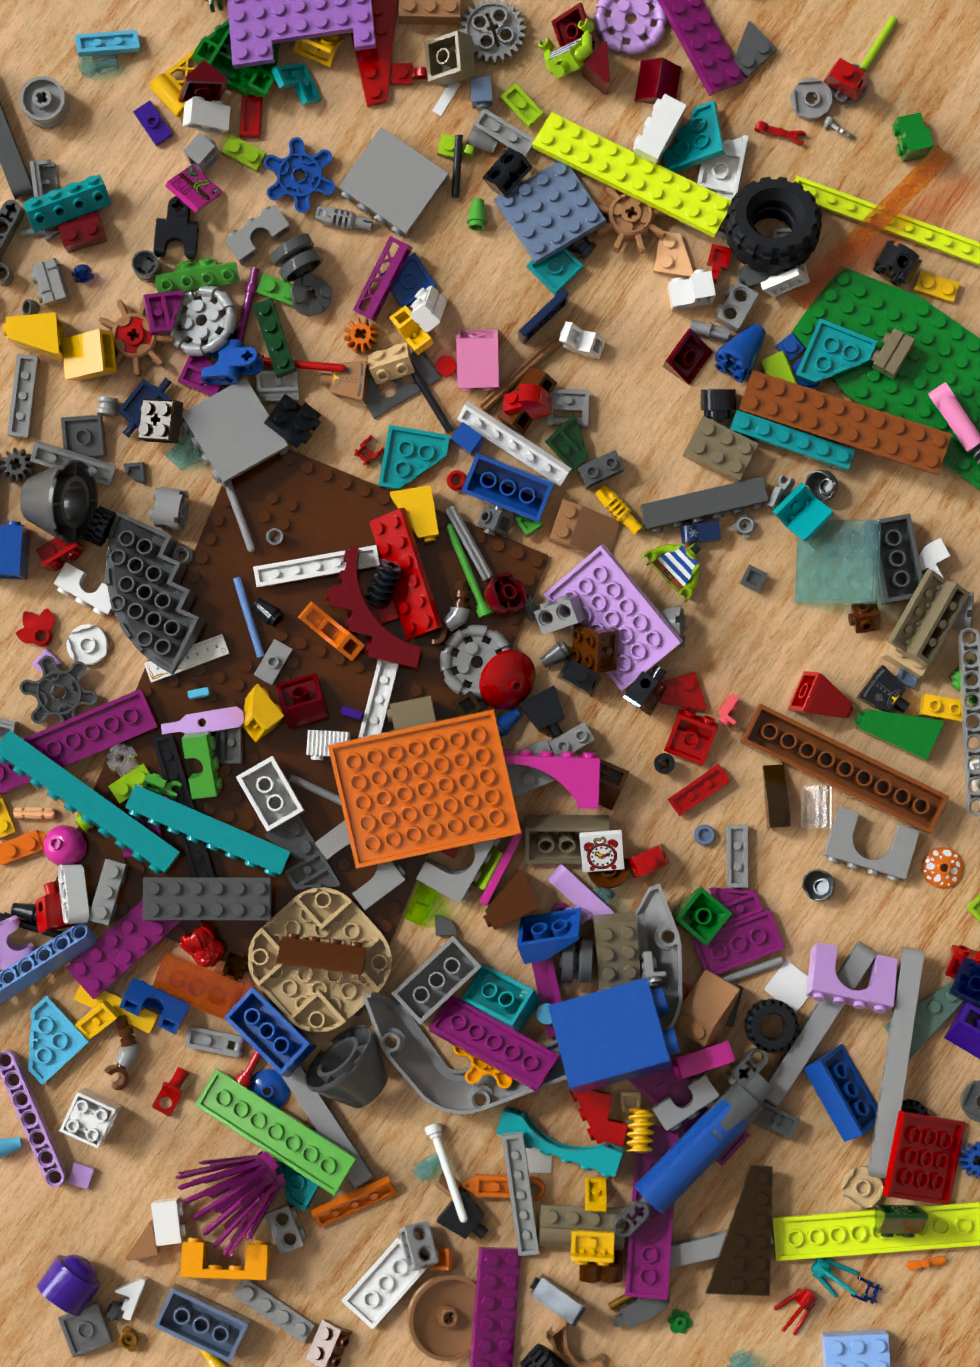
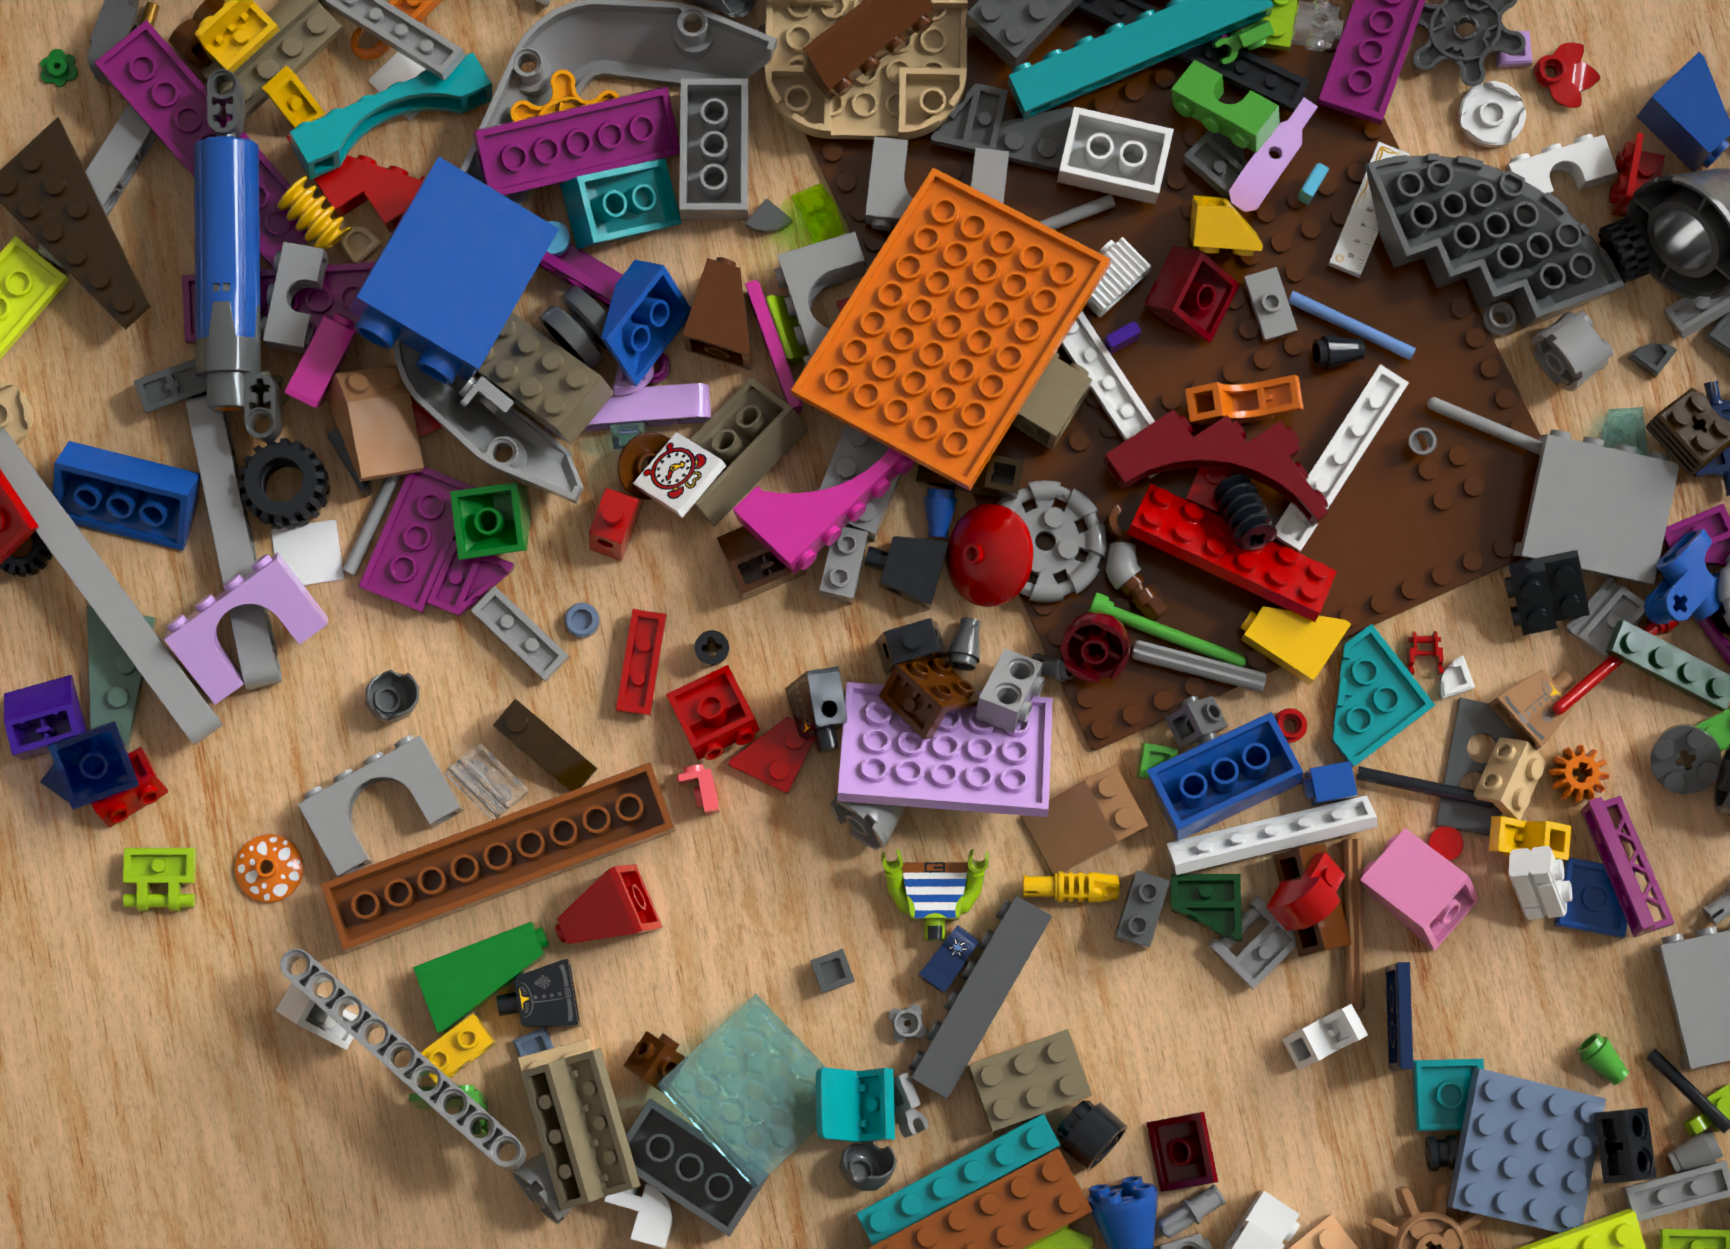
camera: 130 degrees right, 5 degrees down
(367, 427) = (1455, 679): none -> white tile

